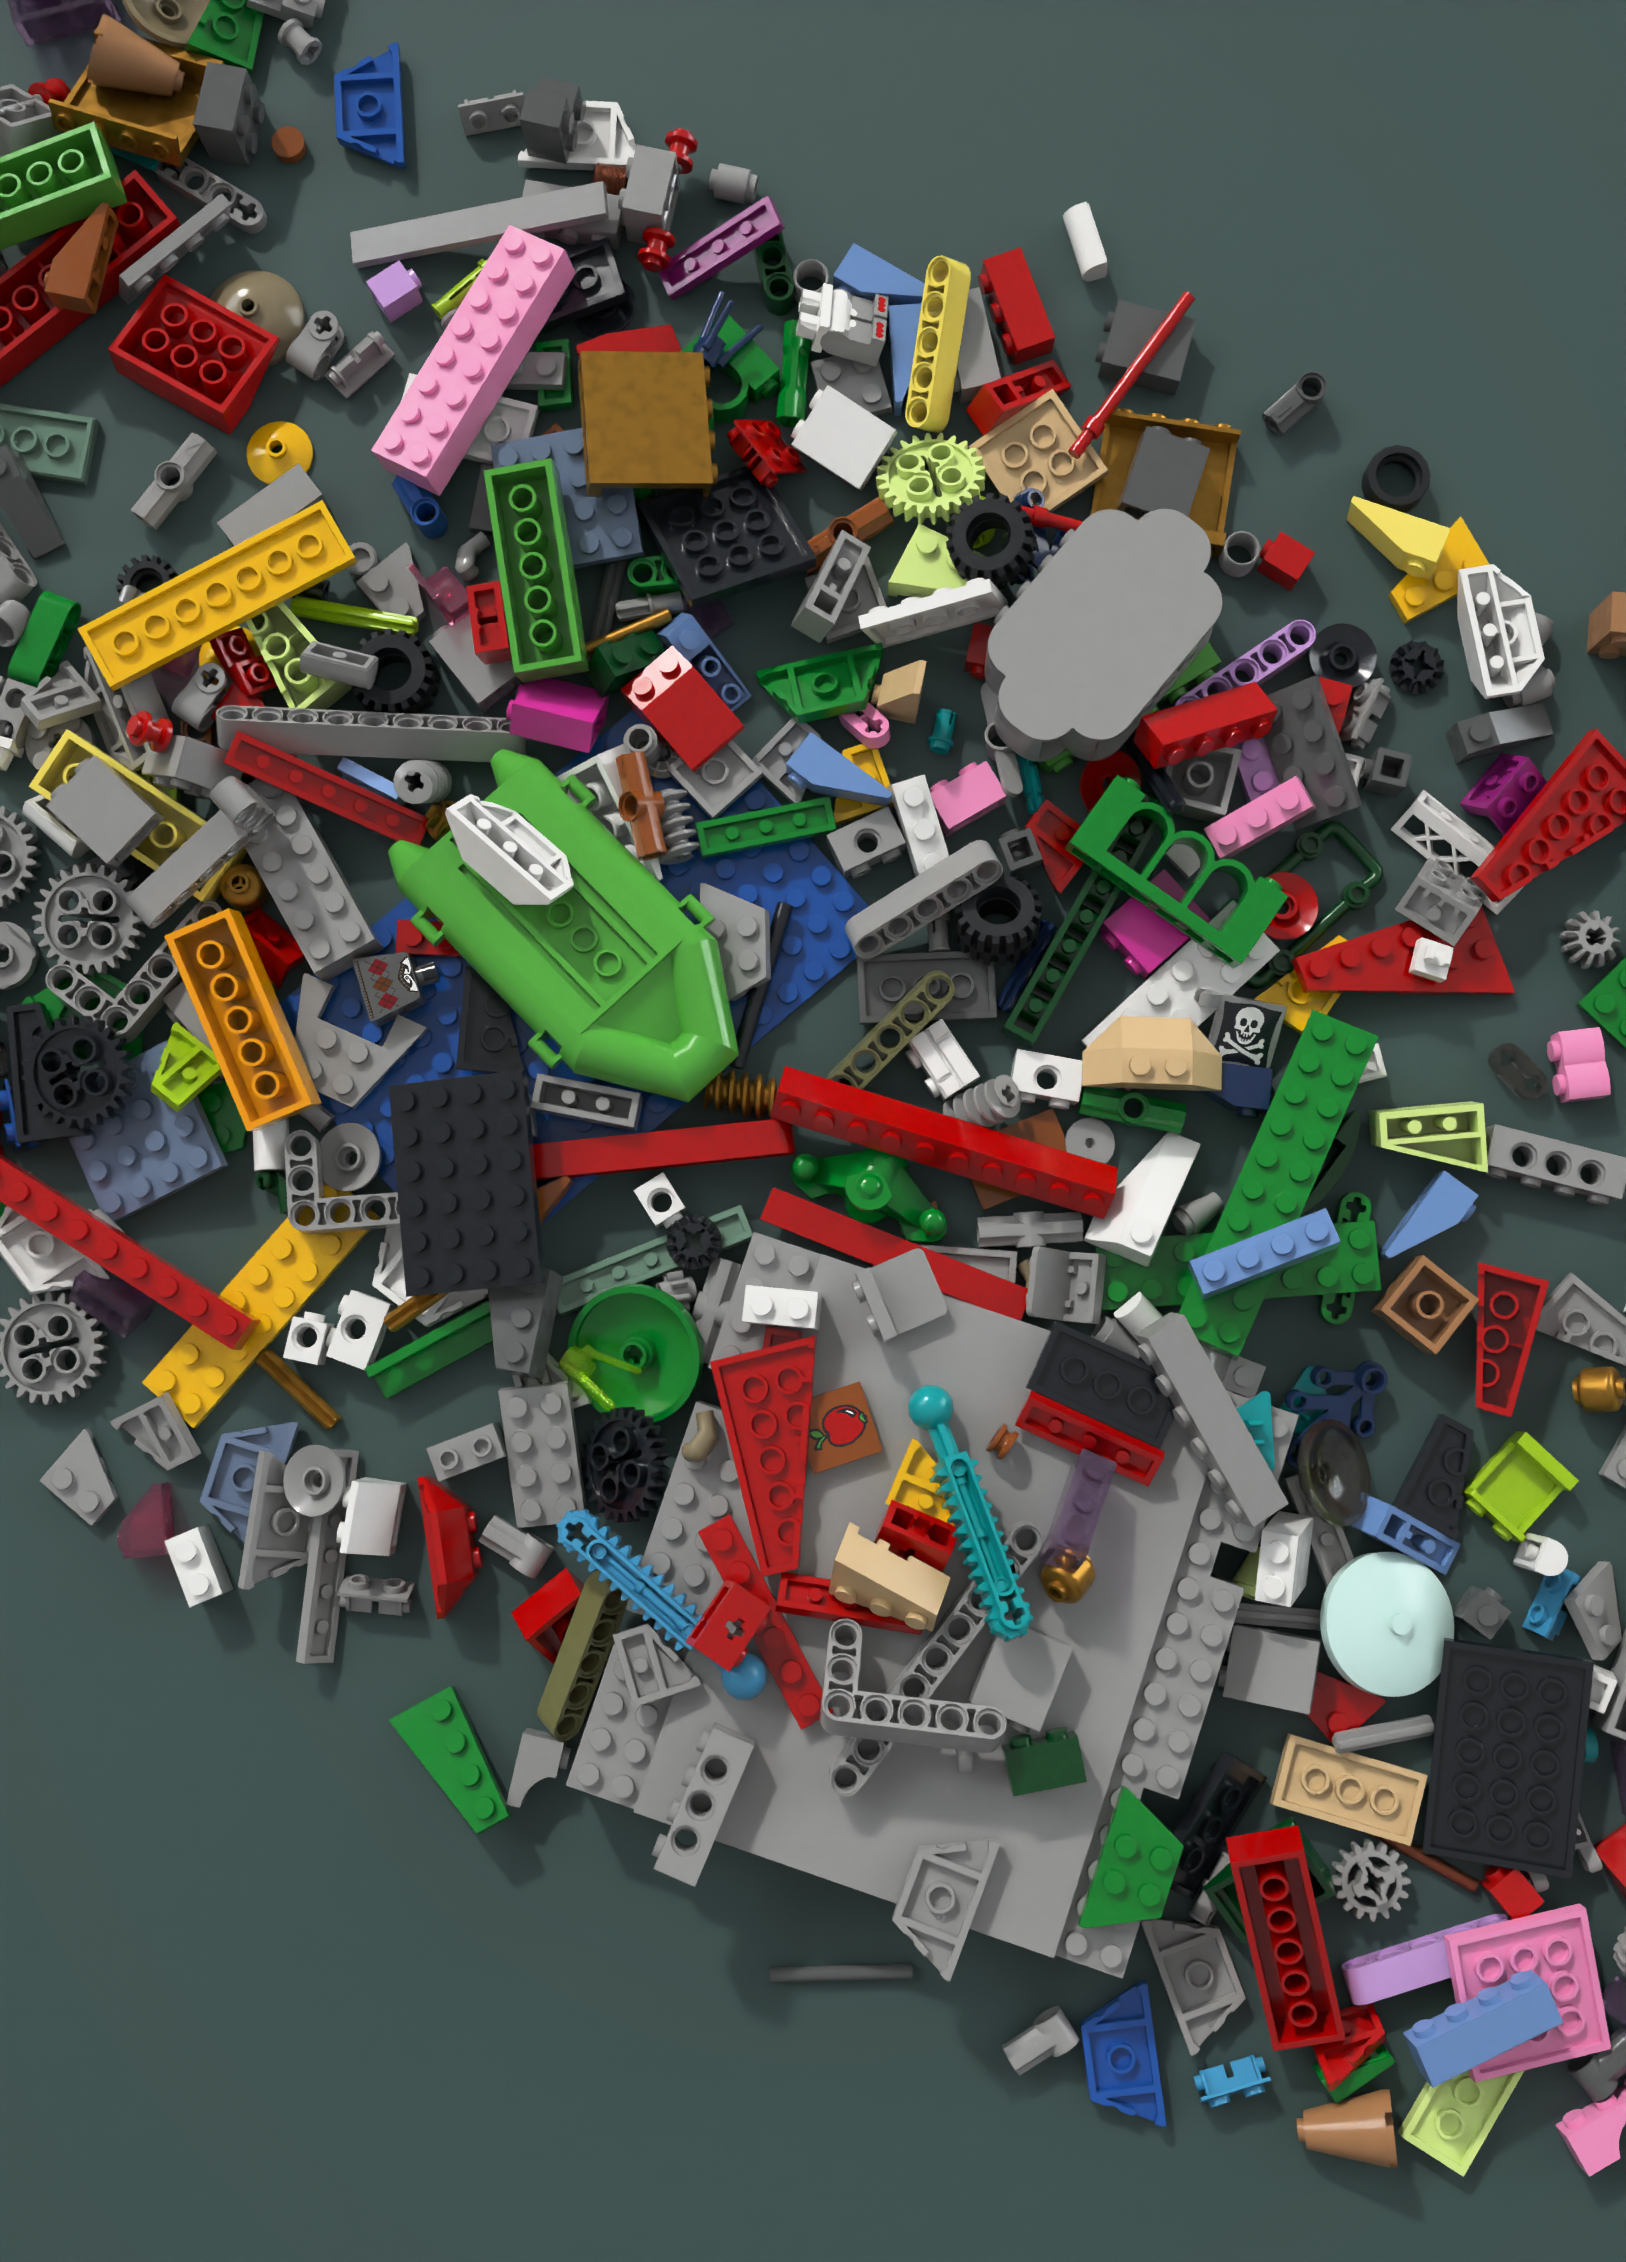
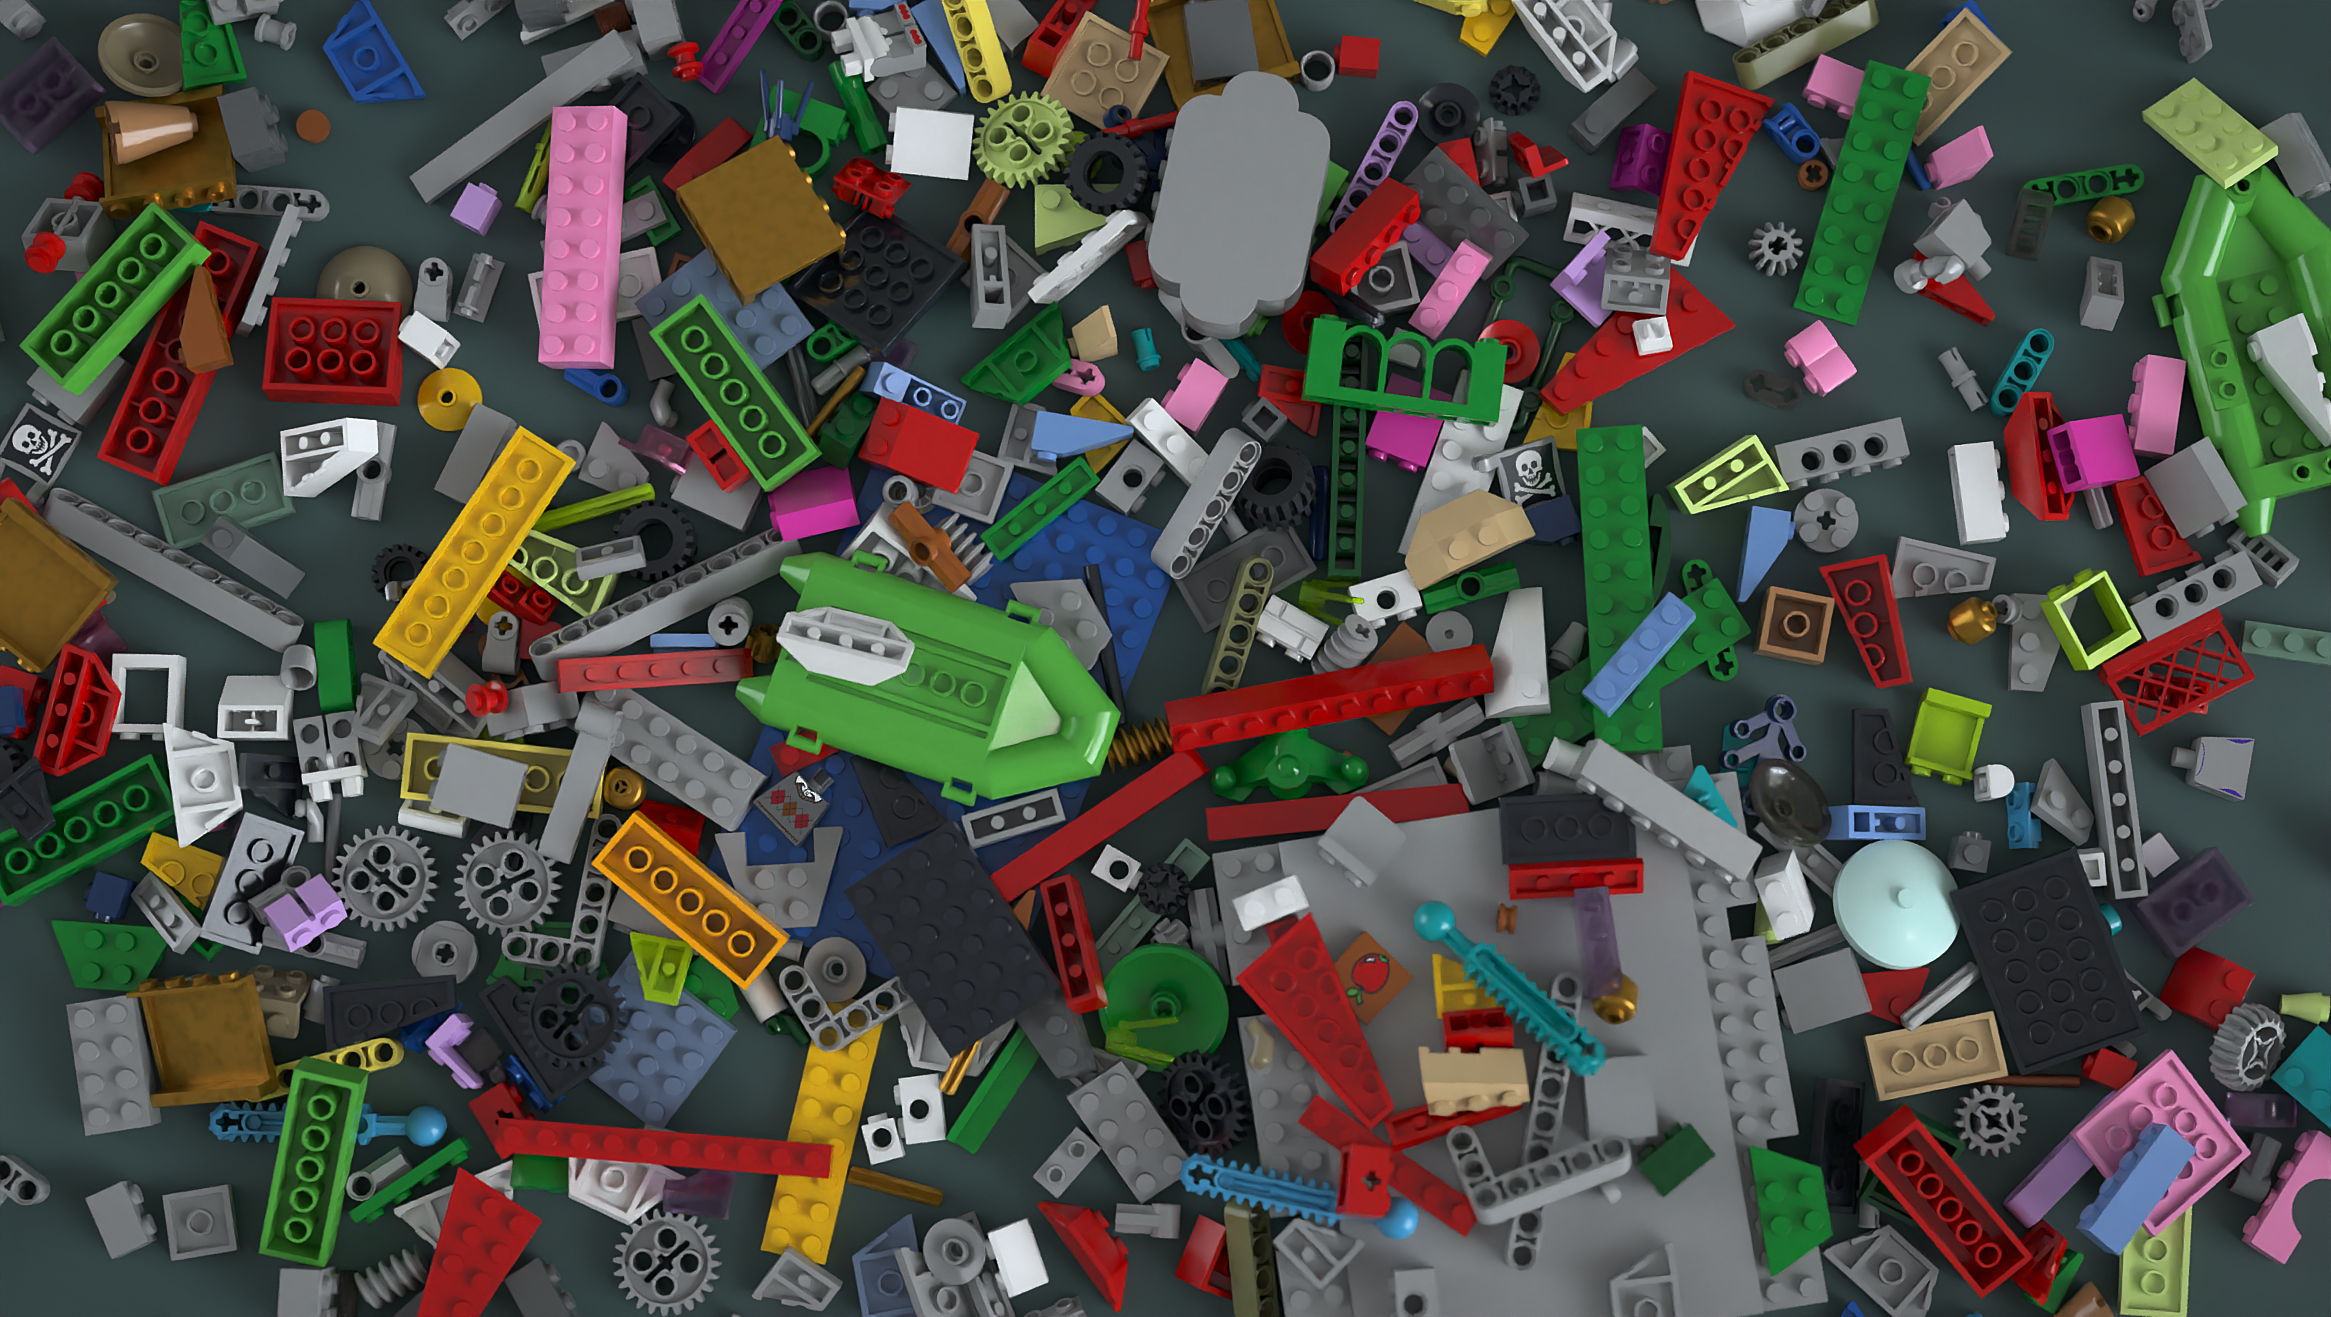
camera: 30 degrees left, 0 degrees up
(134, 439) = (325, 453): none -> white wedge
(284, 384) = (428, 339): none -> white brick
(580, 1250) = (1073, 944): none -> red brick
(983, 1040) = (1314, 595): none -> clear neon green plant
(1391, 874) = (1583, 280): none -> lavender bracket
(1400, 736) = (1534, 160): none -> red panel
(1525, 1220) = (1810, 531): none -> light grey plate

